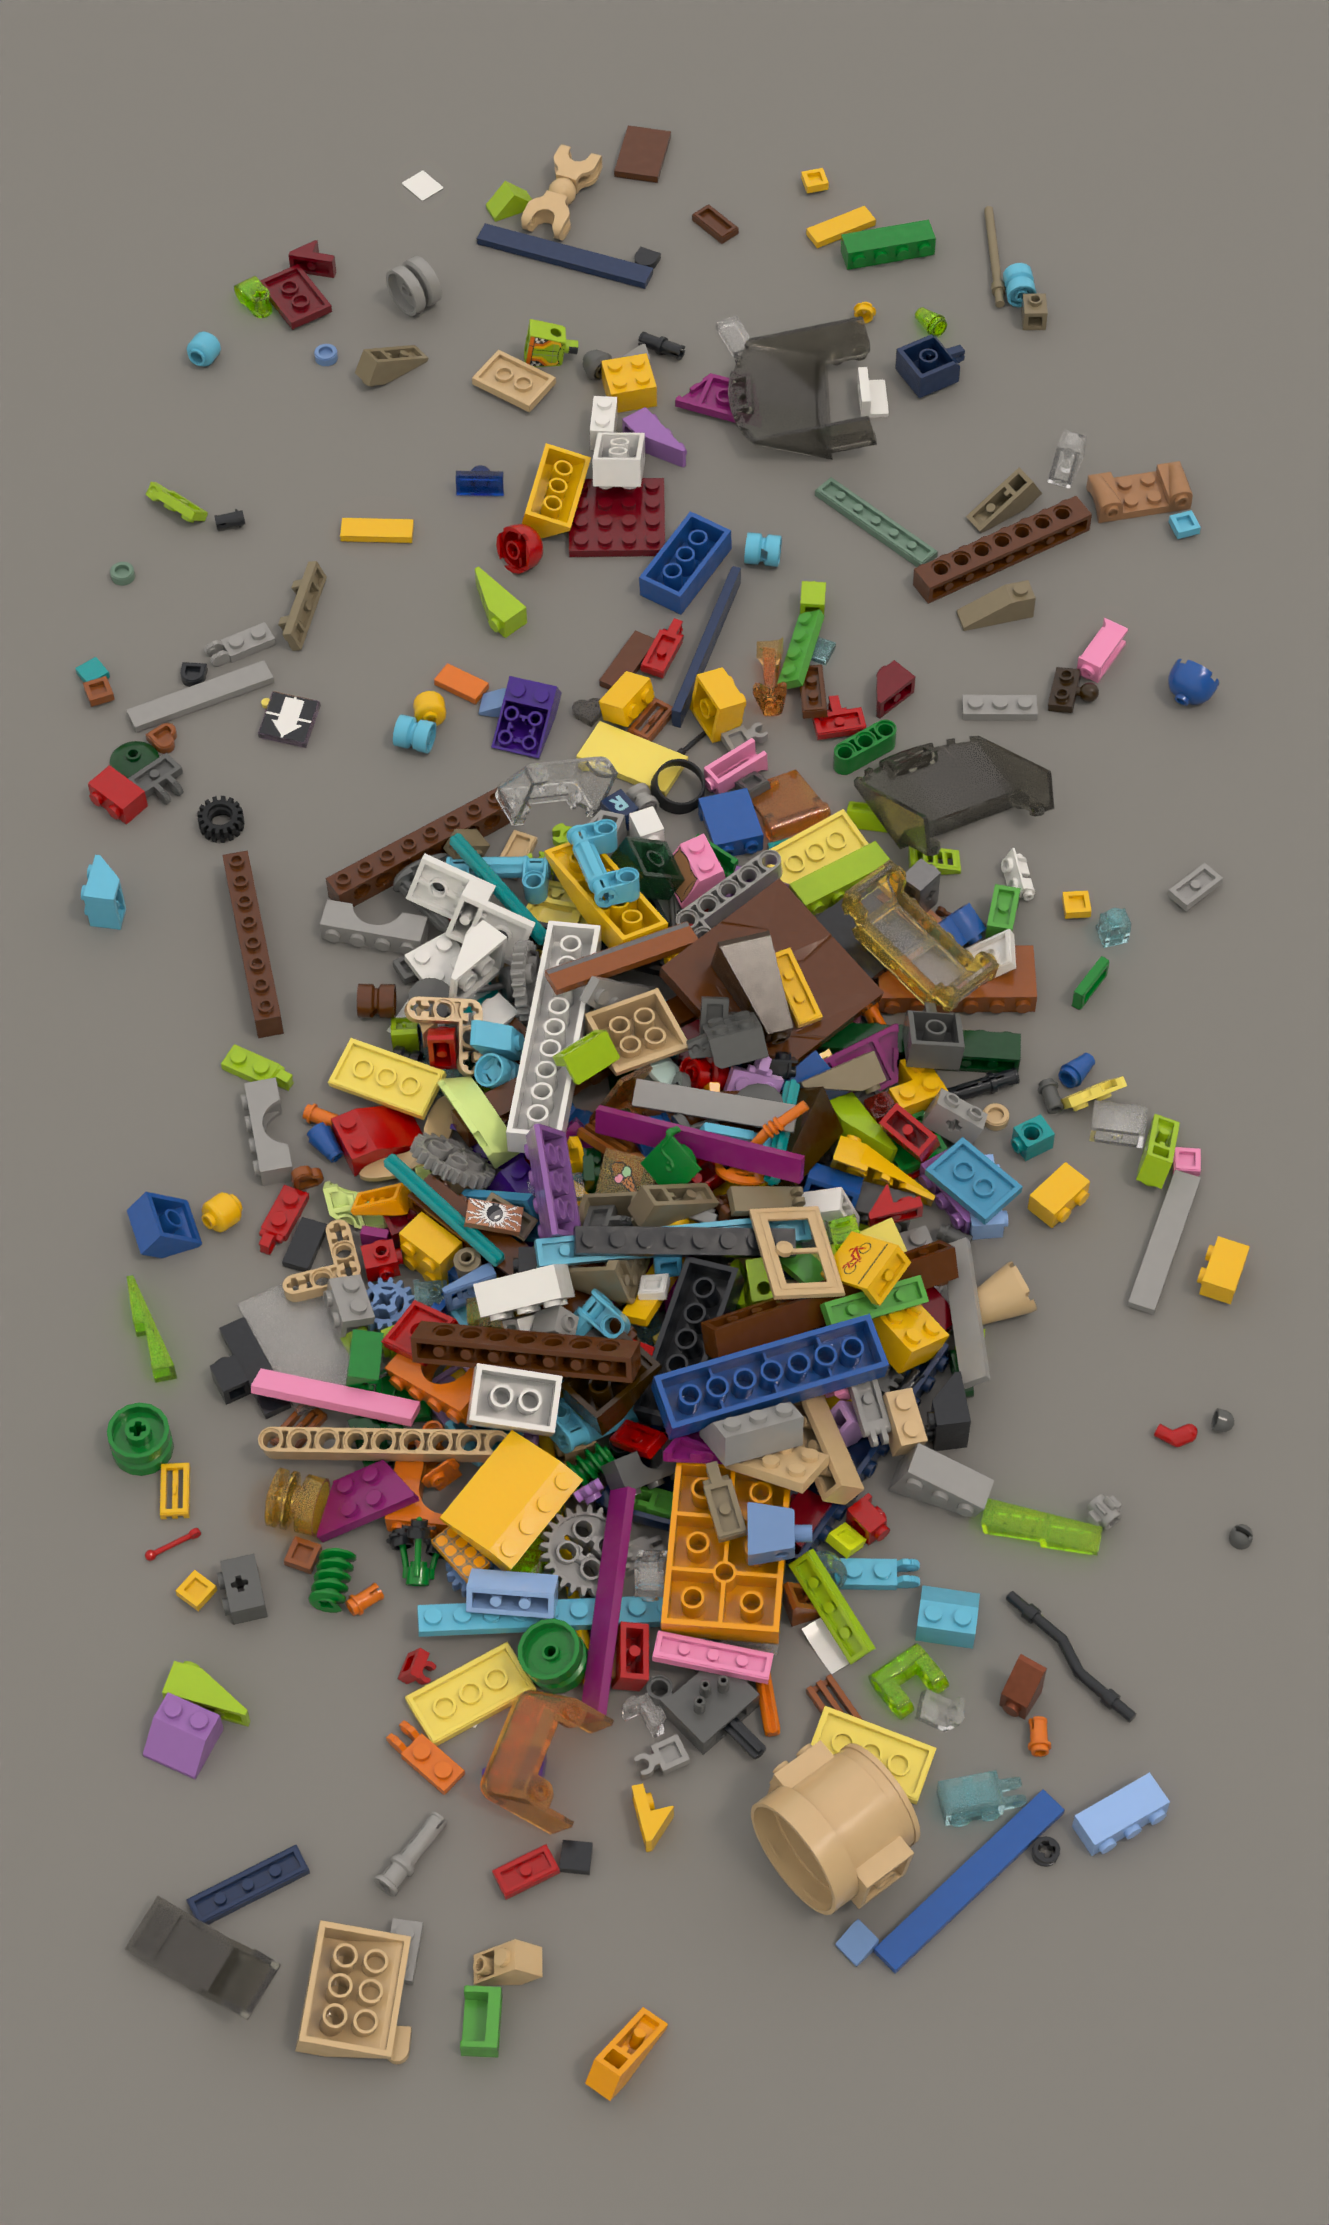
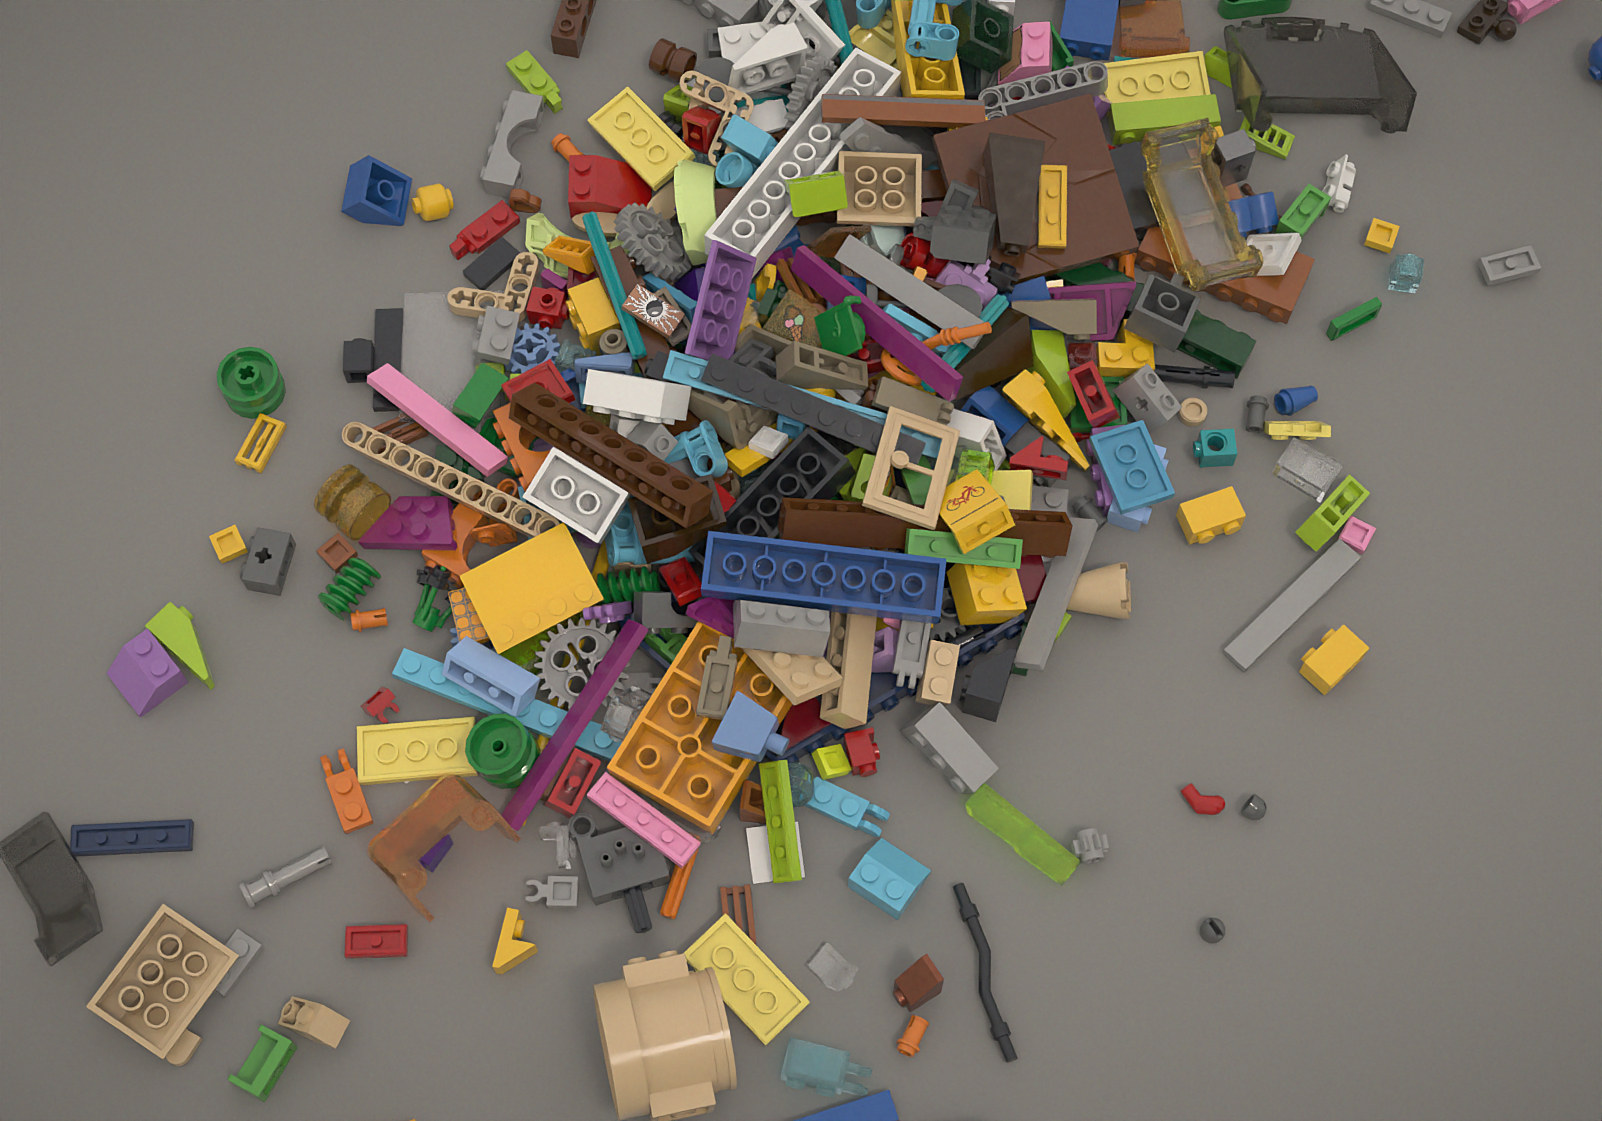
camera: 25 degrees right, 10 degrees up
(150, 1555) = (209, 492): red hinge -> none
(161, 1362) = (312, 275): clear neon green slope -> none
(325, 1142) = (558, 174): blue cone -> none
(576, 1857) = (429, 948): black tile -> none
(899, 1670) = (817, 911): clear neon green connector -> none

